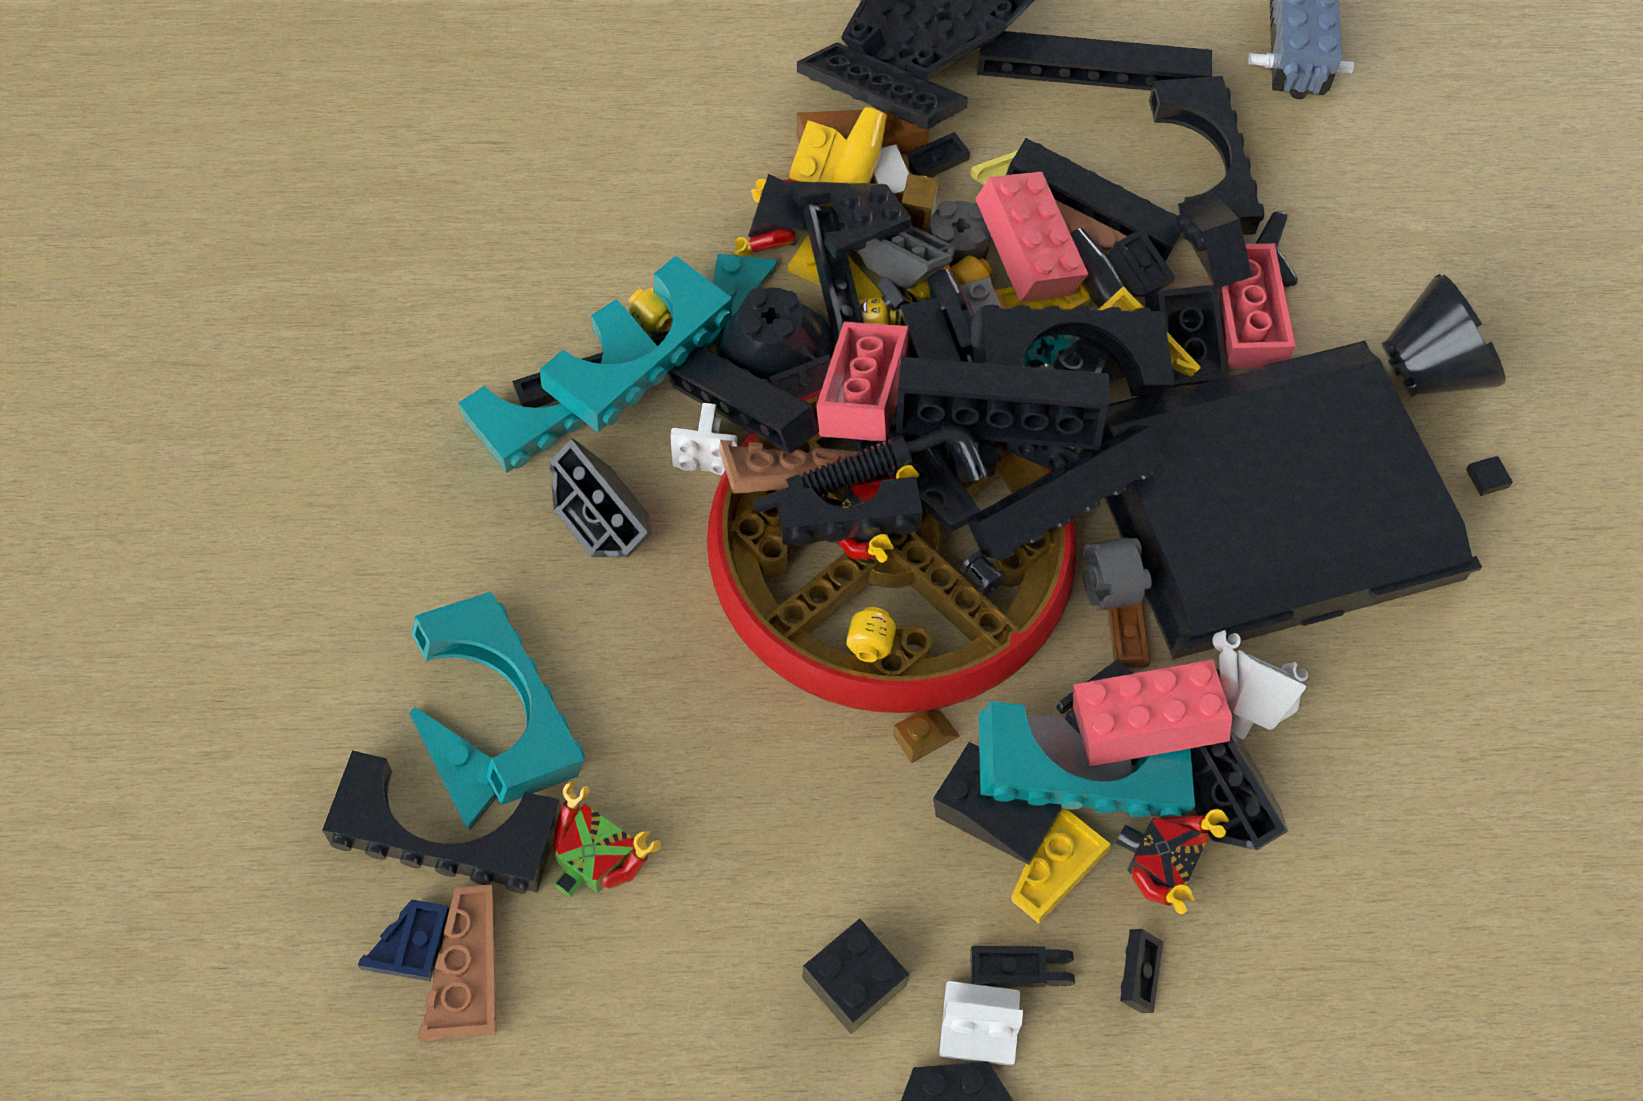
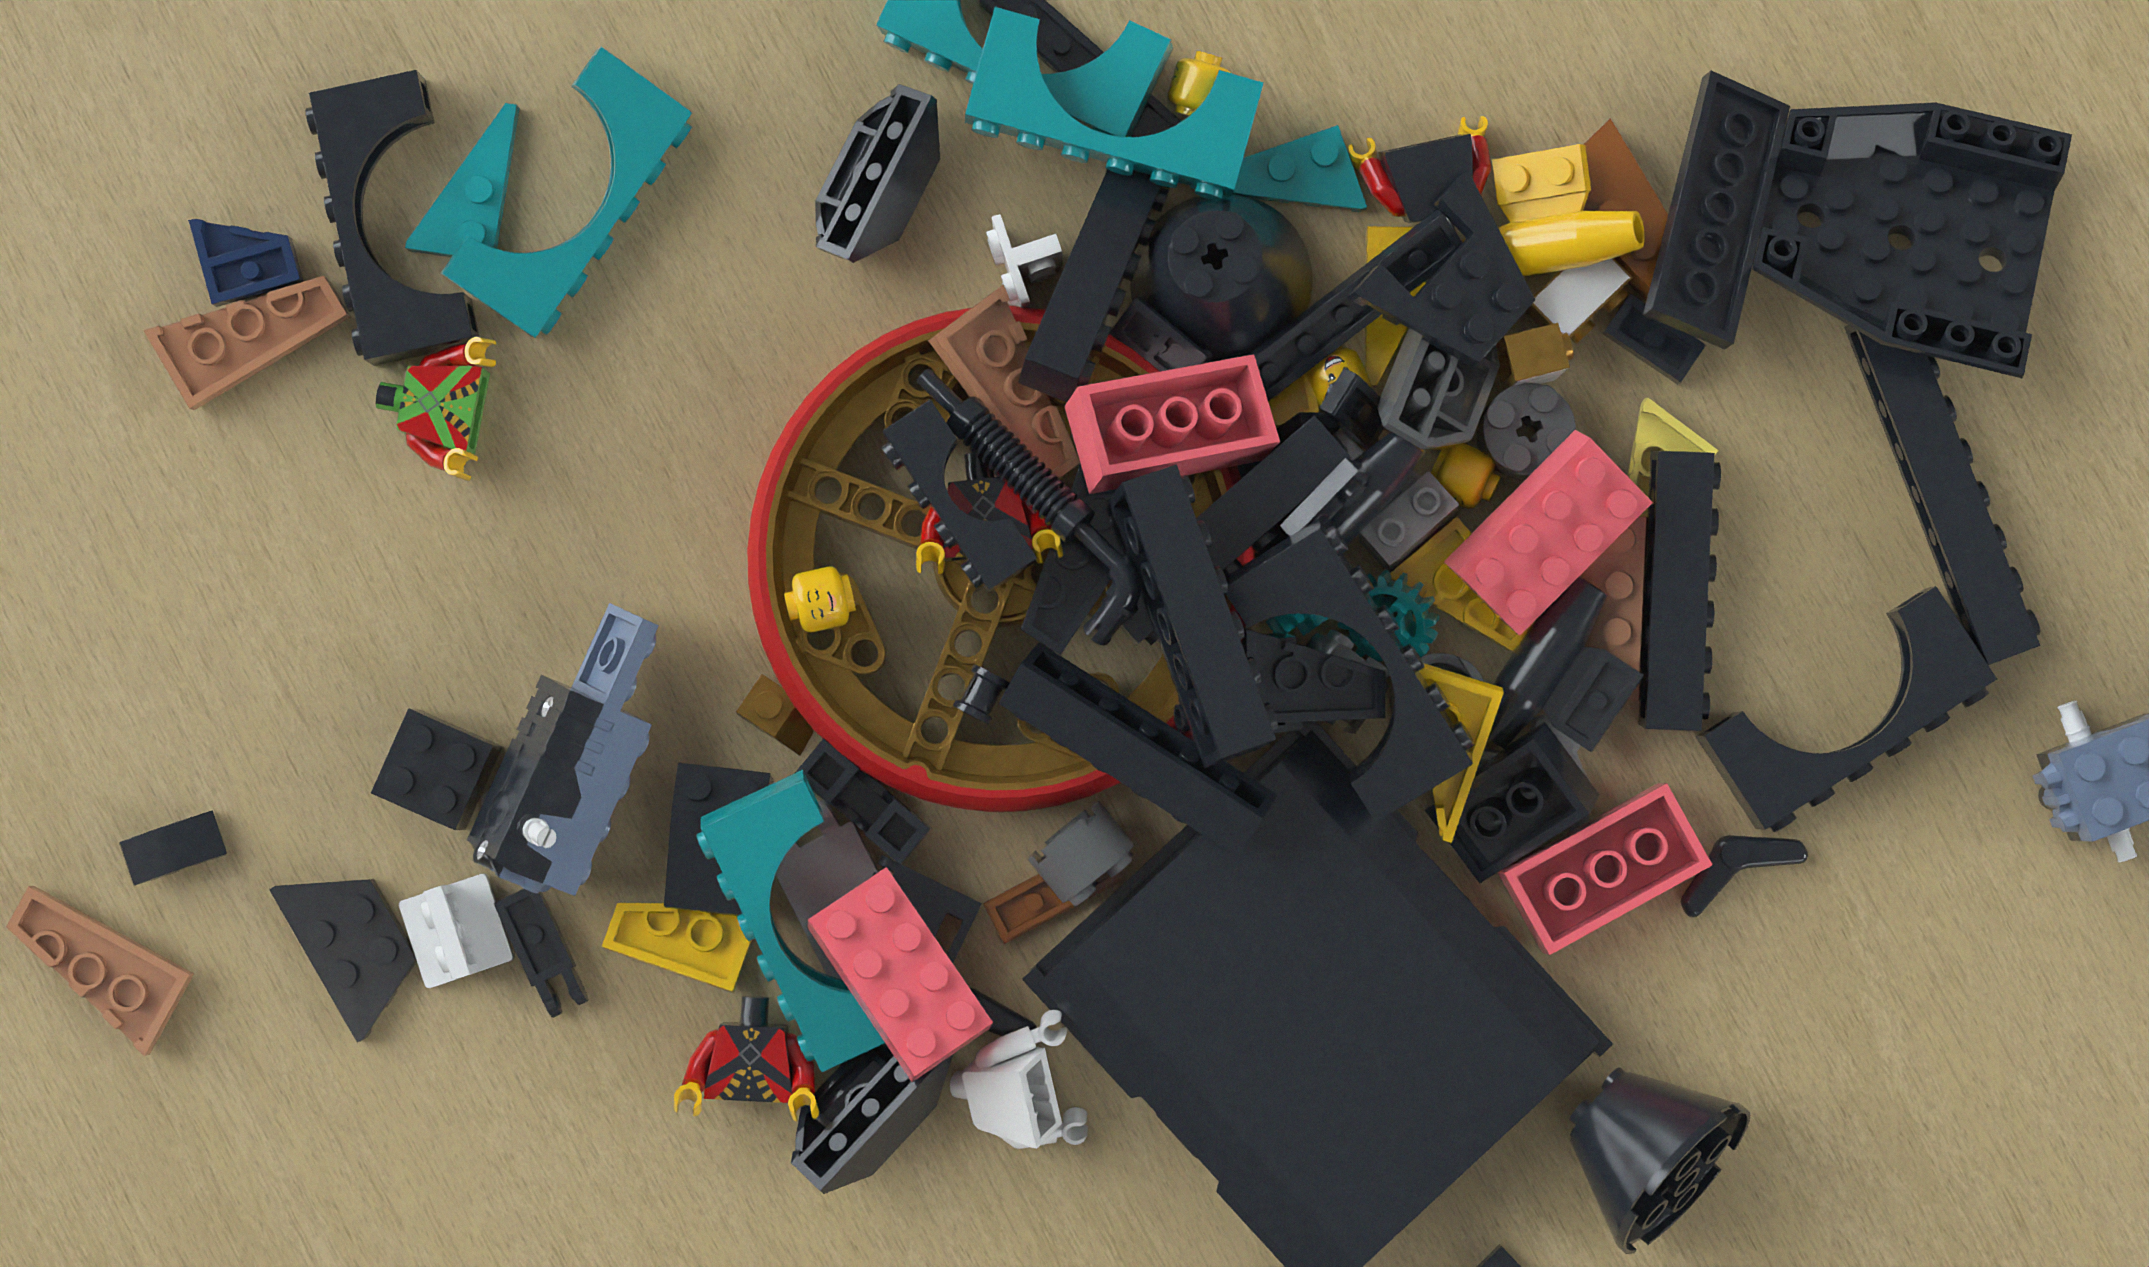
camera: 70 degrees right, 25 degrees up
(897, 867) = (567, 765): none -> piece
(1038, 689) = (864, 802): none -> black arch
(1141, 971) = (599, 1087): black plate -> none
(1215, 238) = (1658, 778): black wedge -> none

